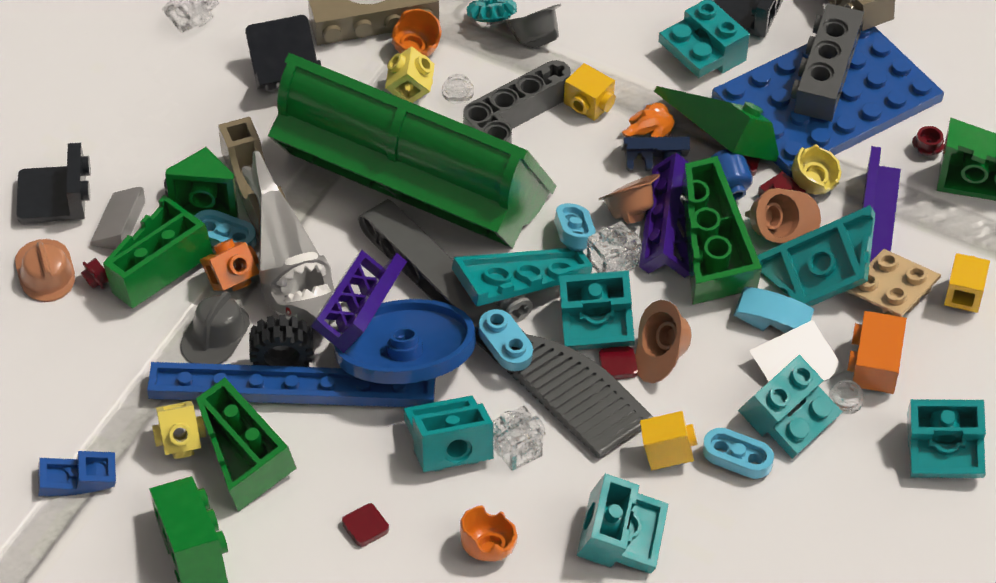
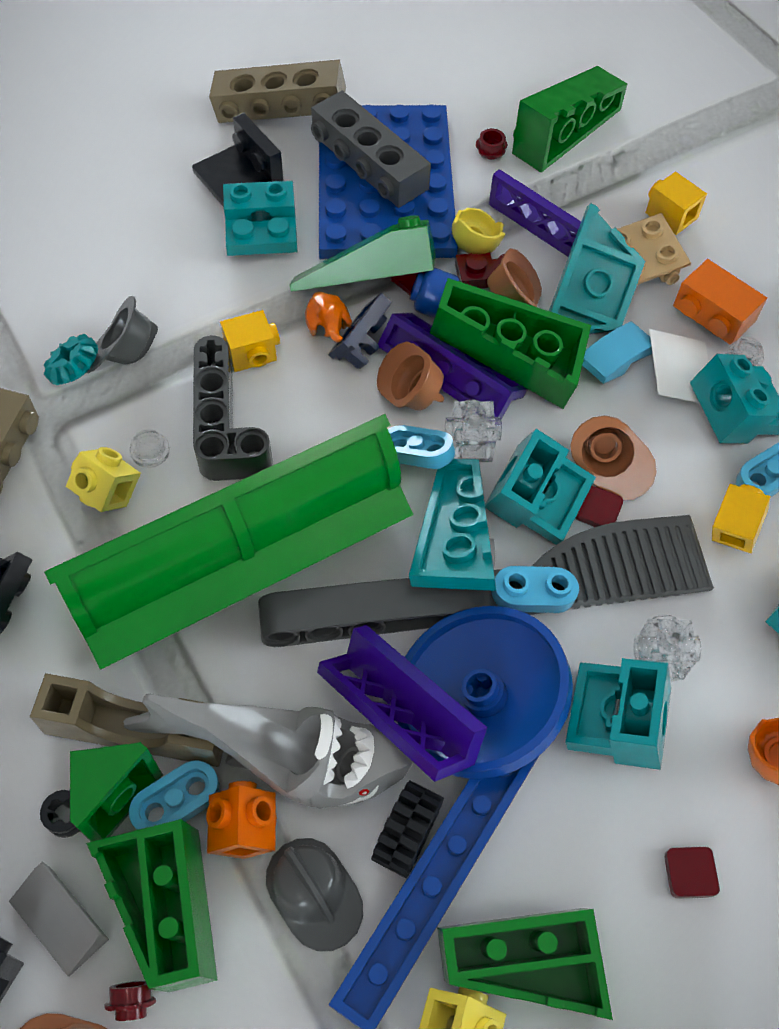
camera: 60 degrees left, 10 degrees up
(417, 29) = (48, 441): orange hair -> none

